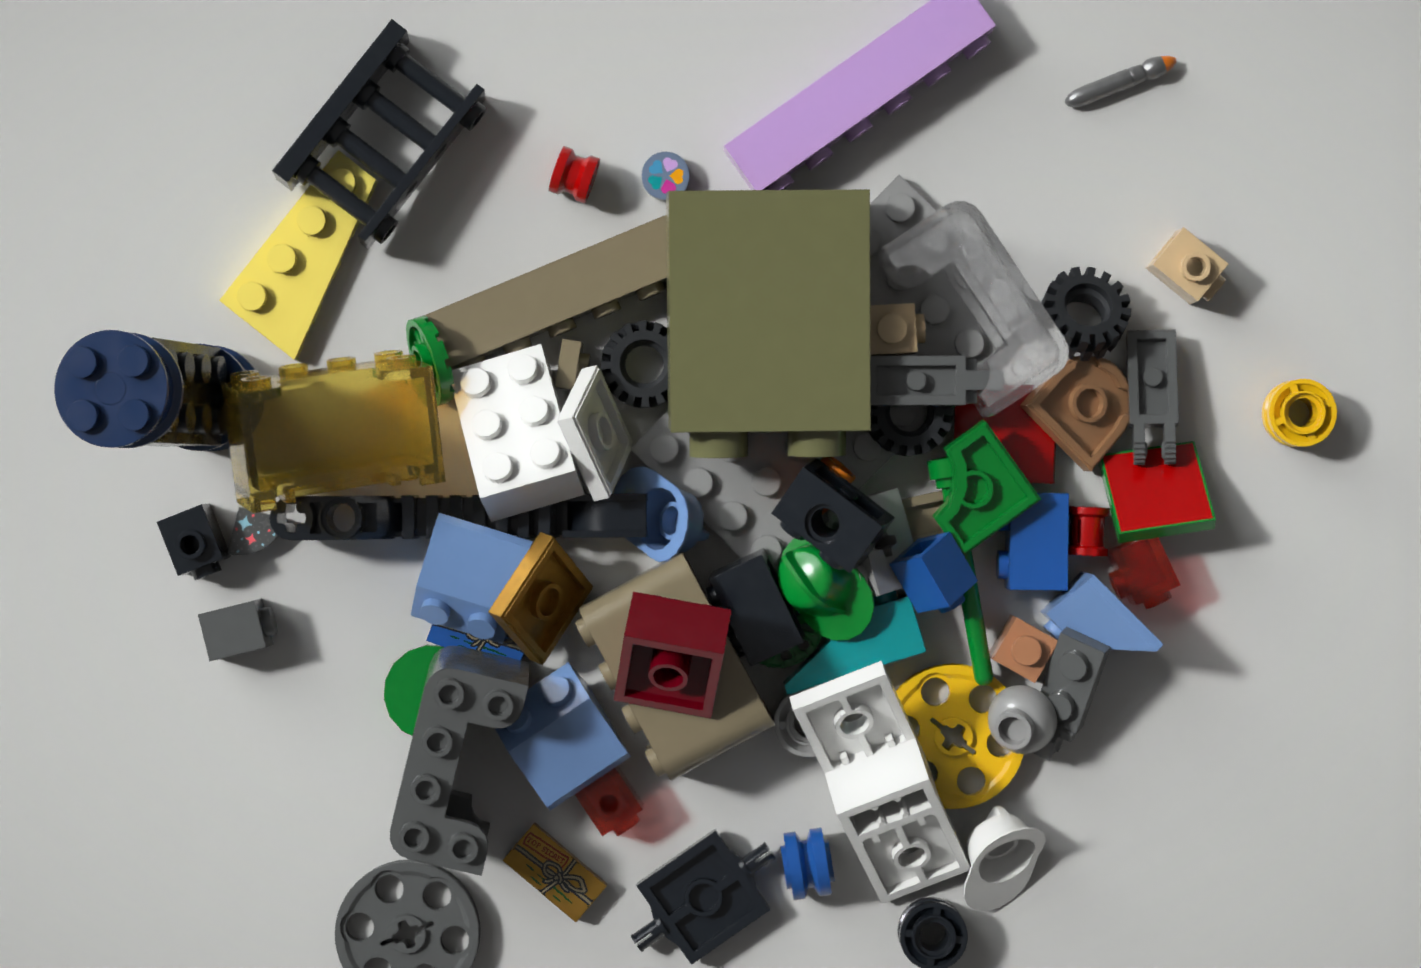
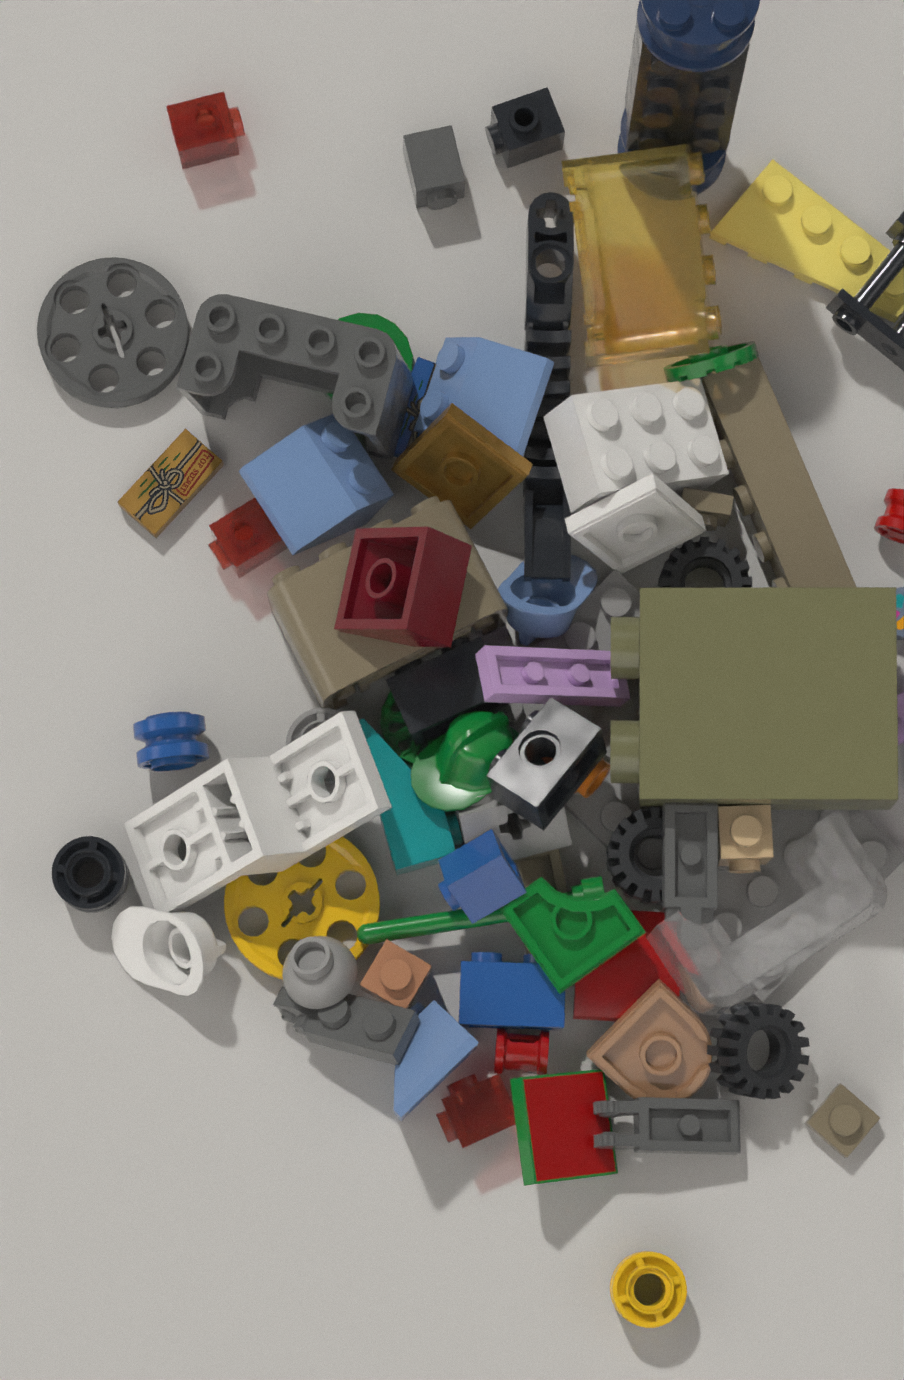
camera: 90 degrees right, 10 degrees down
(203, 852) = (205, 129): none -> clear red brick
(251, 533) = (530, 182): dark grey tile -> none
(703, 896) = (139, 634): black plate -> none
(747, 515) = (545, 673): none -> lavender plate
(1141, 235) = (842, 1120): none -> dark tan plate
(1188, 267) = (808, 1169): tan brick -> none

